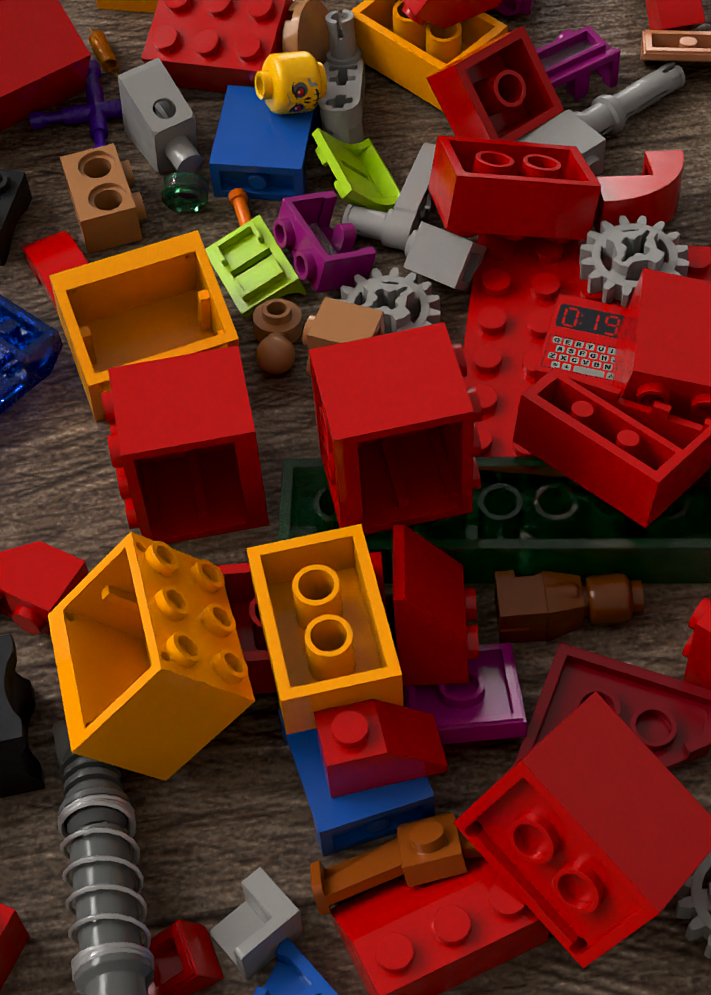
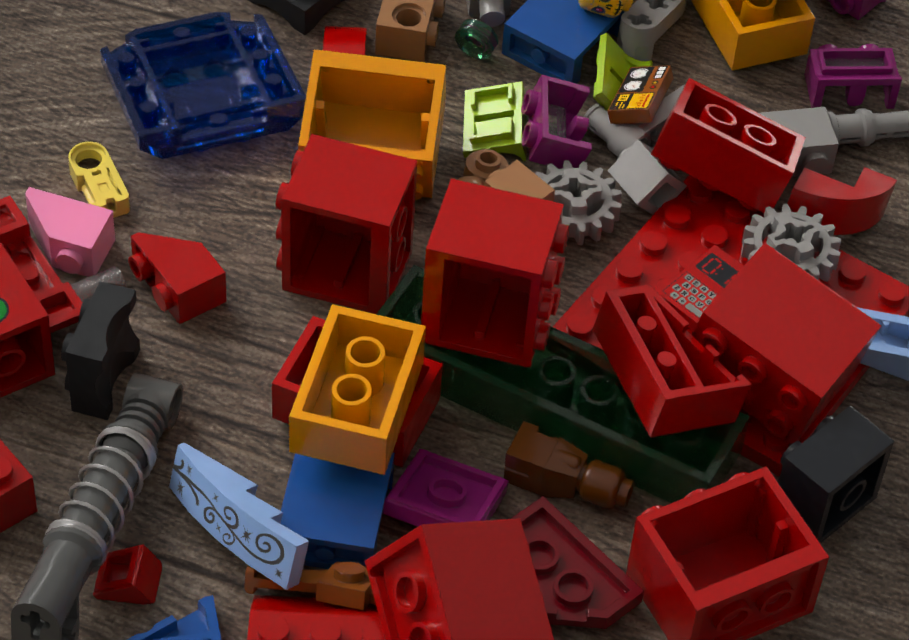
camera: 20 degrees right, 5 degrees down
(148, 658) = (224, 353): light orange container -> none
(238, 200) = (517, 65): orange piece -> none
(251, 832) = (236, 517): none -> light blue slope
(258, 925) = (194, 580): light grey panel -> none
(377, 745) = (349, 490): red slope -> none
(388, 176) = (640, 94): none -> tile
(431, 612) = (452, 422): red slope -> none
(496, 90) = (769, 66): red brick -> none

